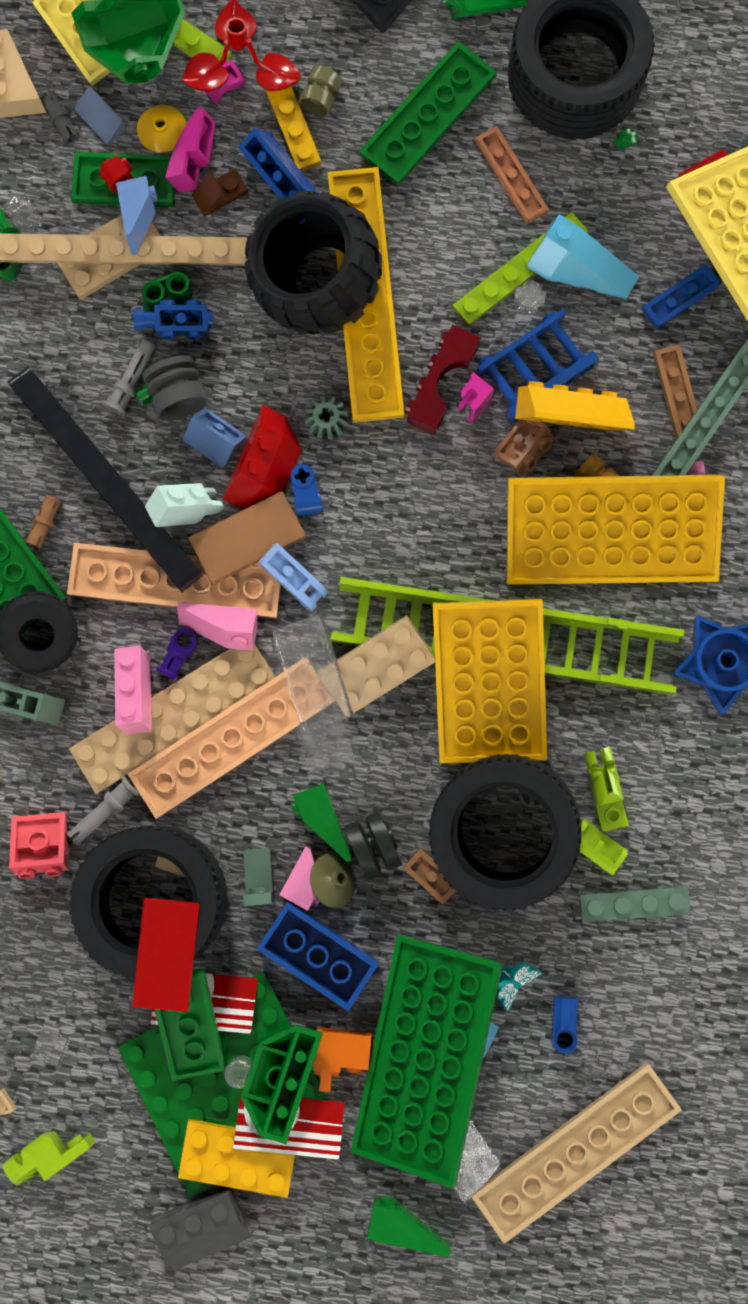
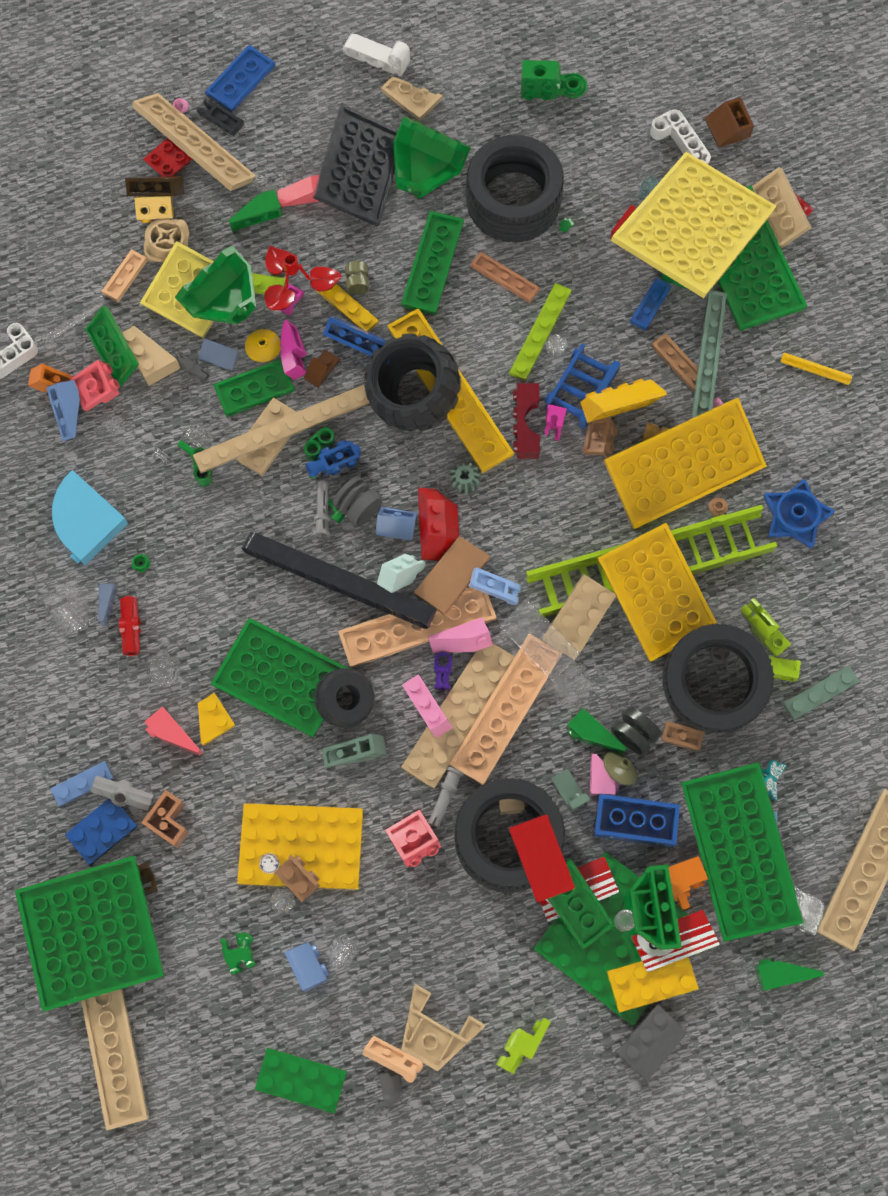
camera: 30 degrees left, 10 degrees down
(43, 522) = (309, 627): medium nougat pin -> none
(115, 171) = (250, 384): red plate -> none
(137, 209) = (276, 400): medium blue slope -> none
(306, 495) = (477, 531): blue piece -> none
(564, 1021) = (817, 787): blue piece -> none
(577, 259) = (573, 309): medium azure wedge -> none
(627, 605) = (718, 507): none -> medium nougat plate

